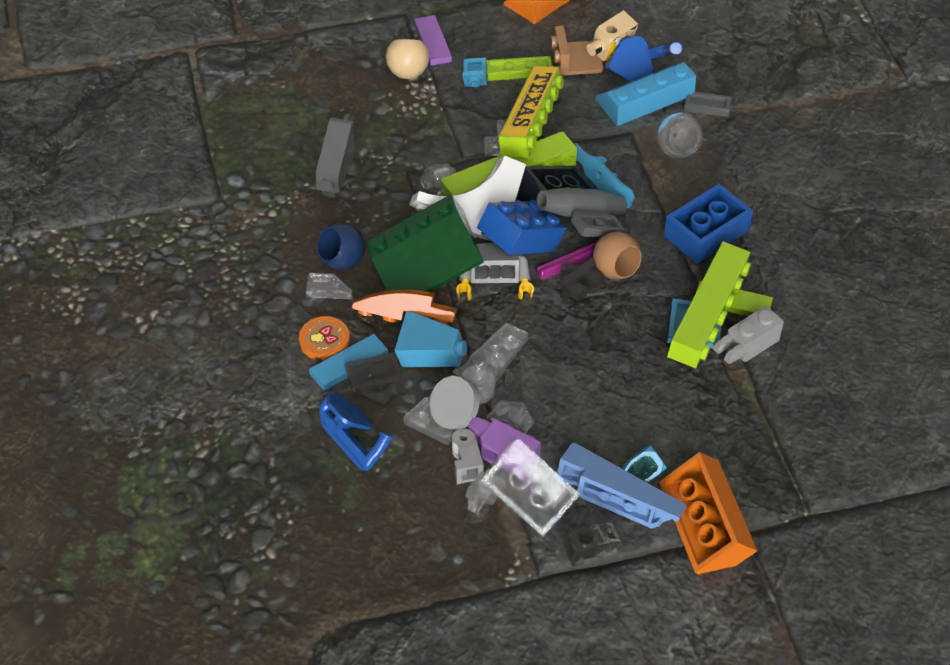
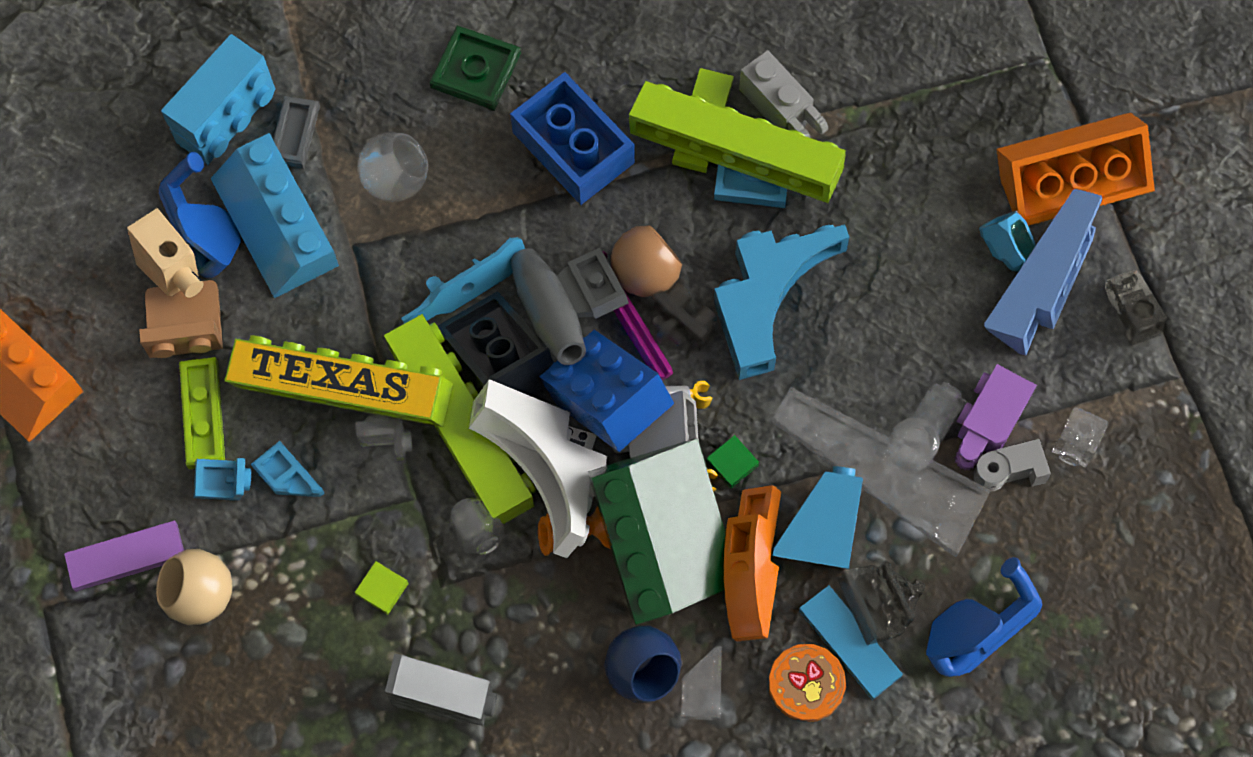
camera: 90 degrees left, 20 degrees up
(405, 142) = (381, 587): none -> lime tile
(454, 402) = (952, 474): light grey tile -> none
(478, 306) = (732, 461): none -> green tile
(480, 102) = (285, 473): none -> dark azure tile
(529, 486) = (1077, 374): clear slope -> none
(590, 317) = (768, 272): none -> dark azure arch
(721, 59) = (219, 99): none -> dark azure piece
(763, 186) = (475, 67): none -> dark green tile

